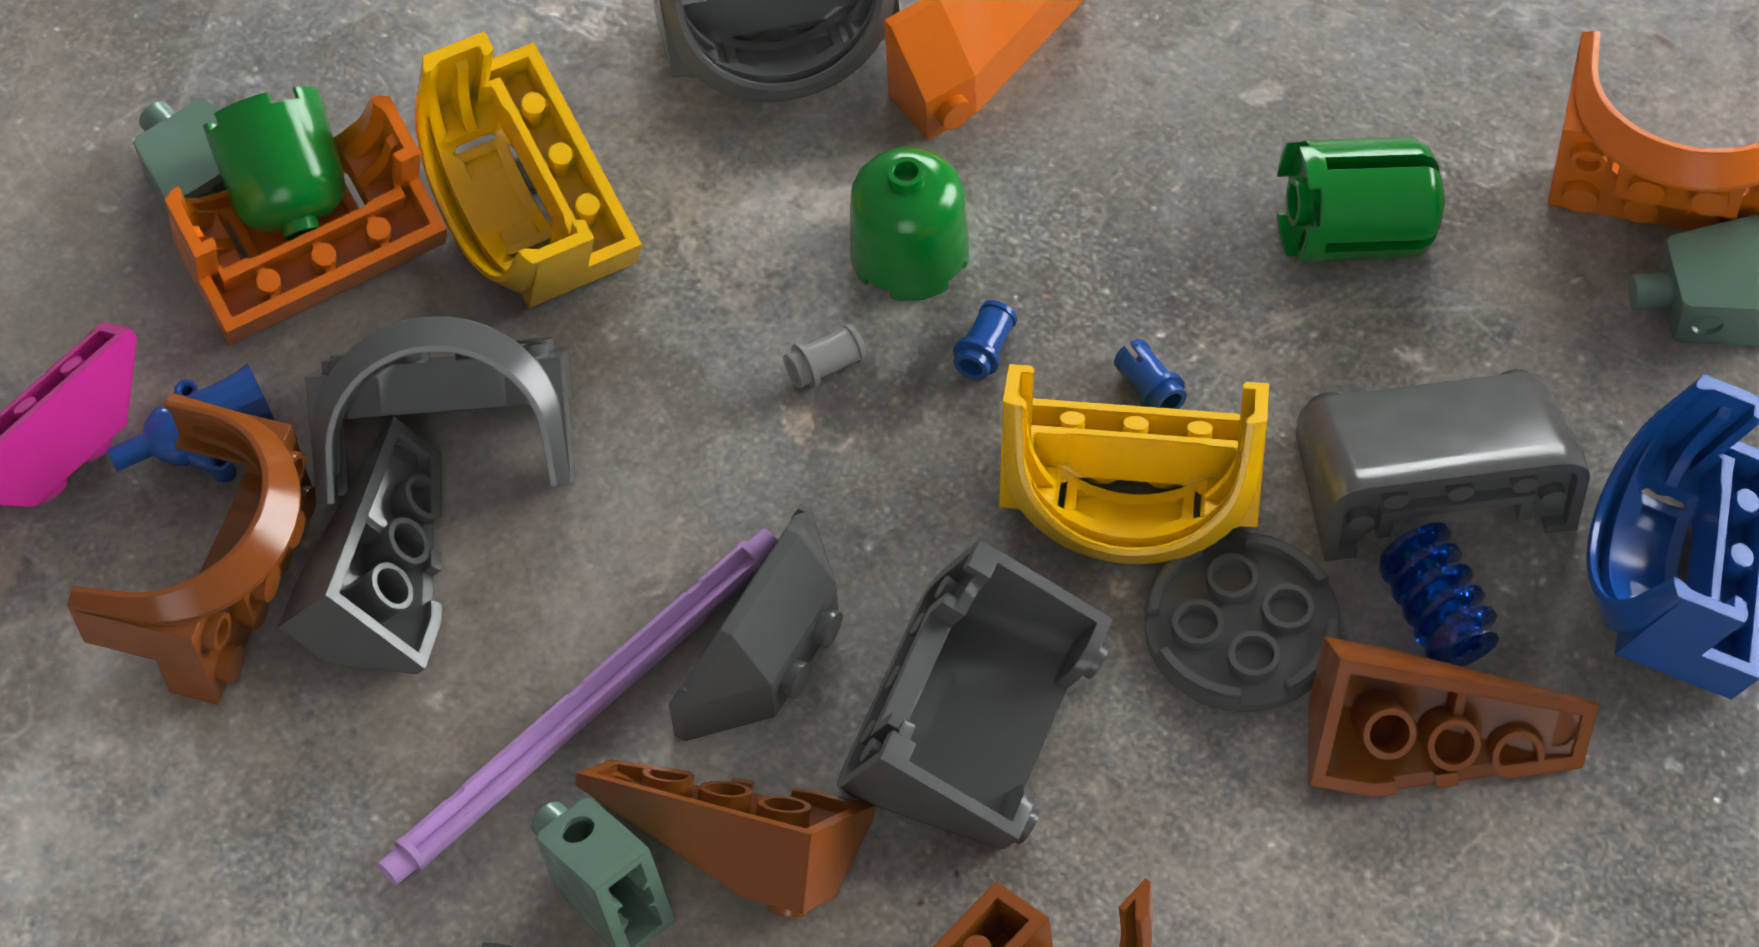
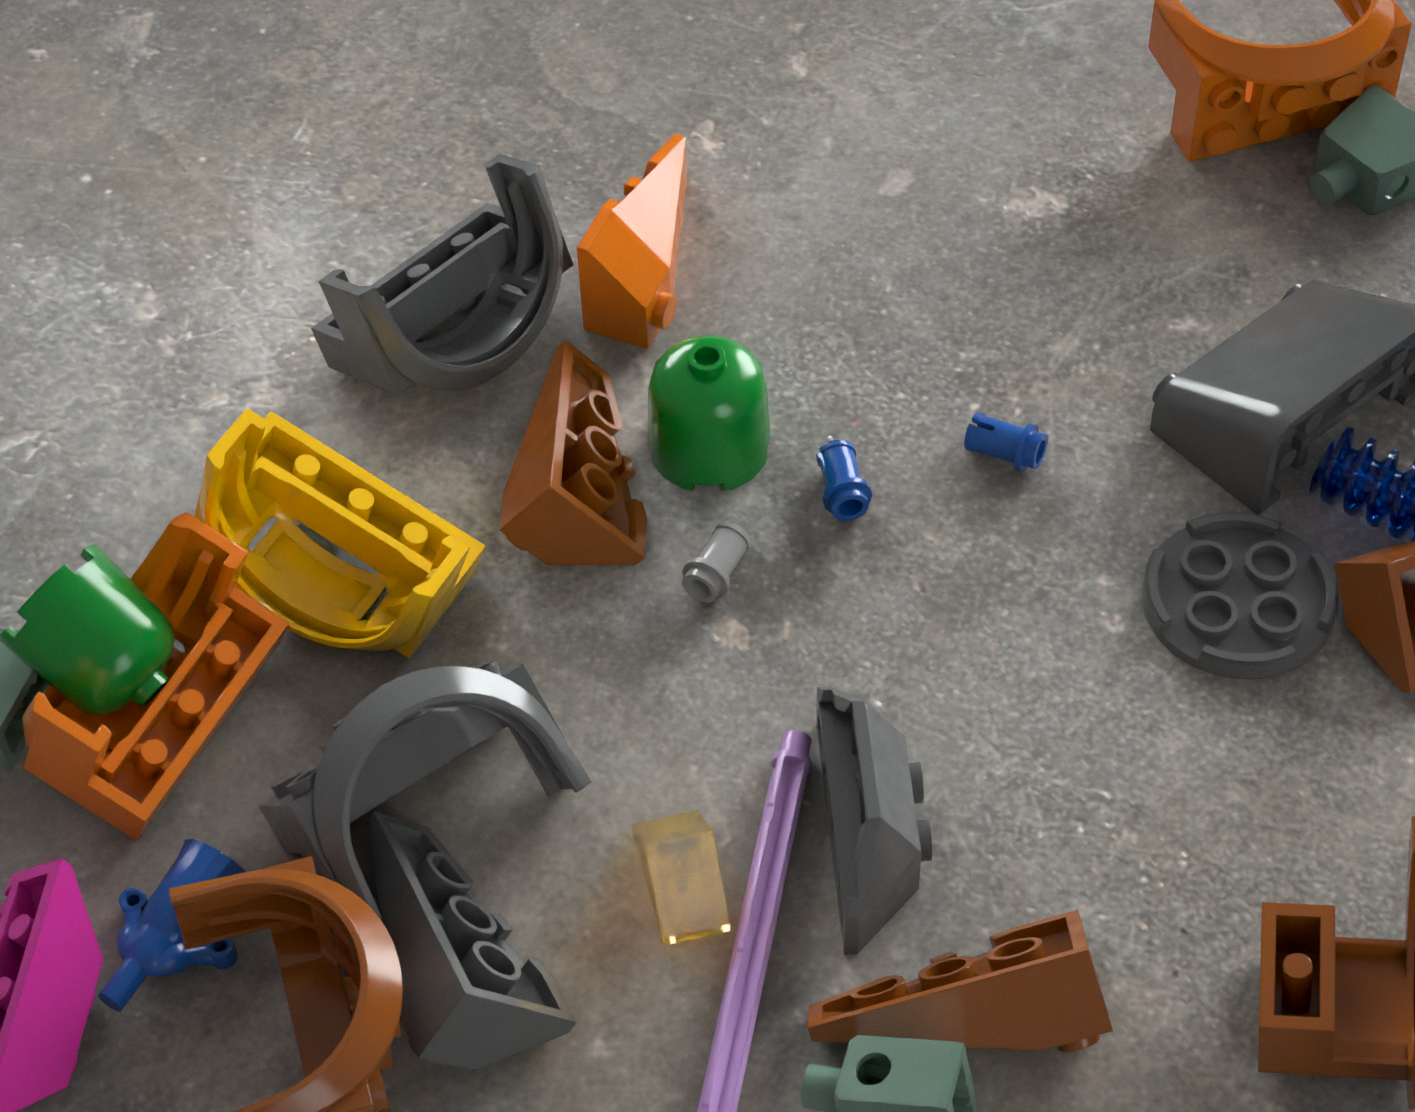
camera: 35 degrees left, 5 degrees down
(593, 598) = (682, 876): none -> clear yellow slope
(764, 225) = (569, 478): none -> dark orange wedge
(974, 698) = (1079, 775): dark grey windscreen -> none
(1104, 443) = (989, 525): yellow piece -> none
(1360, 199) = (1060, 218): green cylinder -> none

